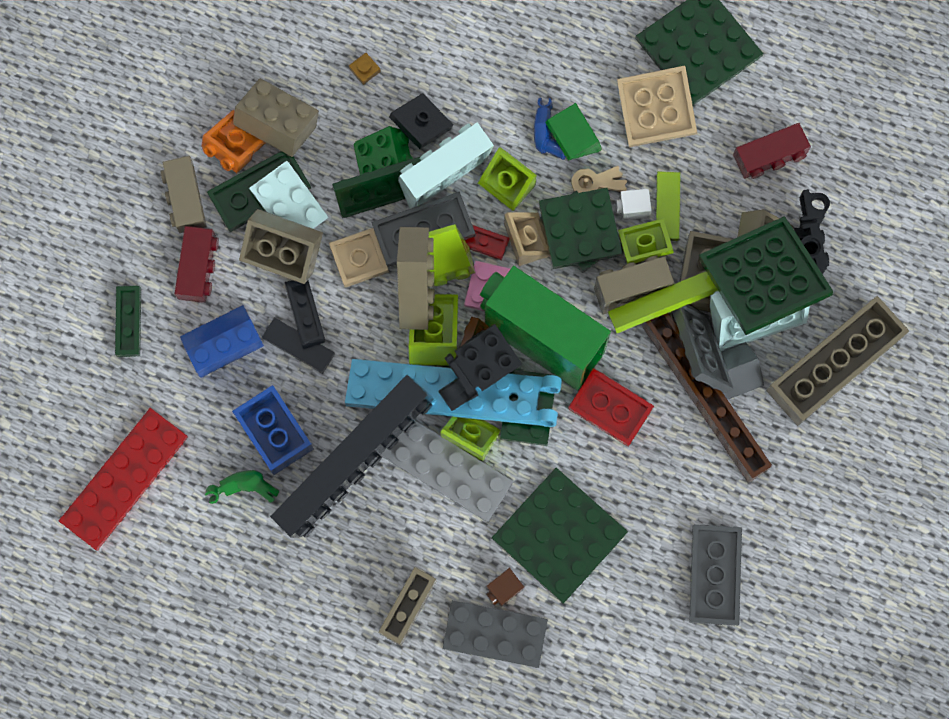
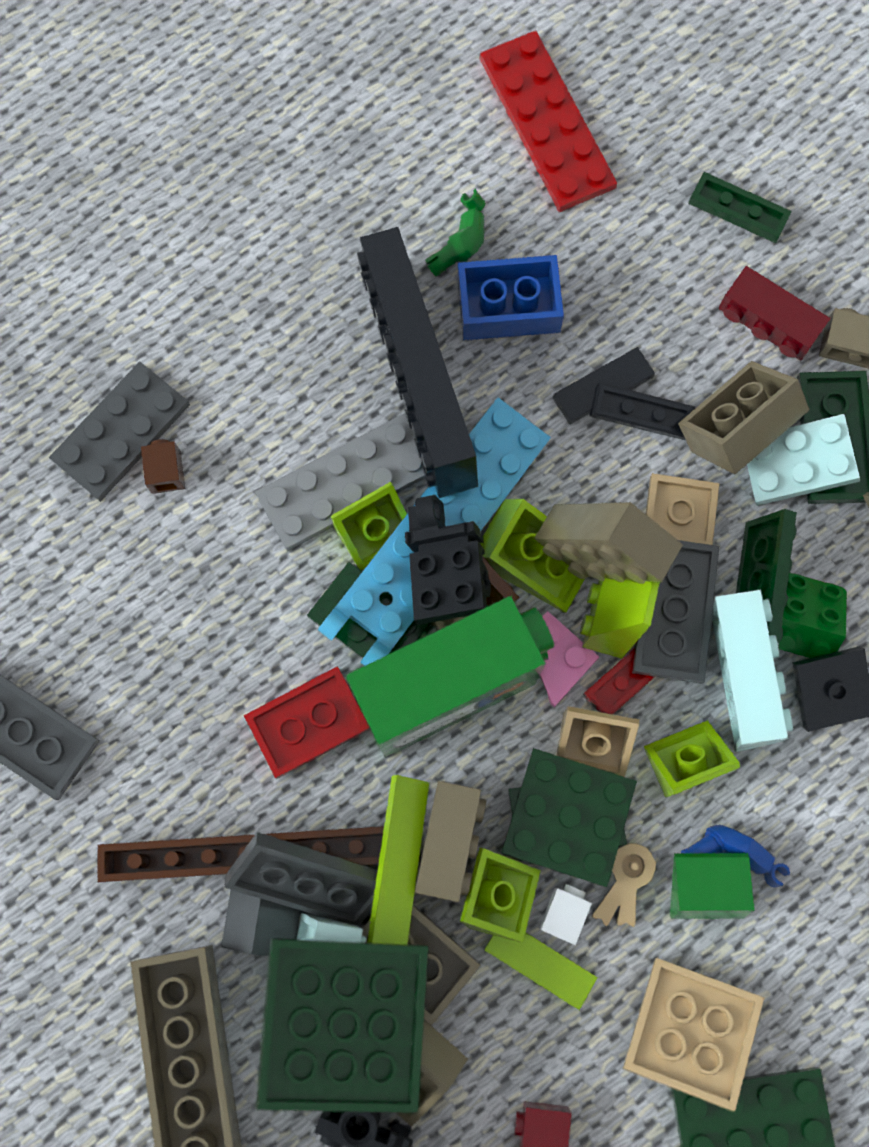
camera: 120 degrees right, 0 degrees up
(221, 341) = (657, 297): blue slope -> none
(407, 606) = (207, 342): dark tan brick -> none
(559, 535) = (188, 570): dark green plate -> none

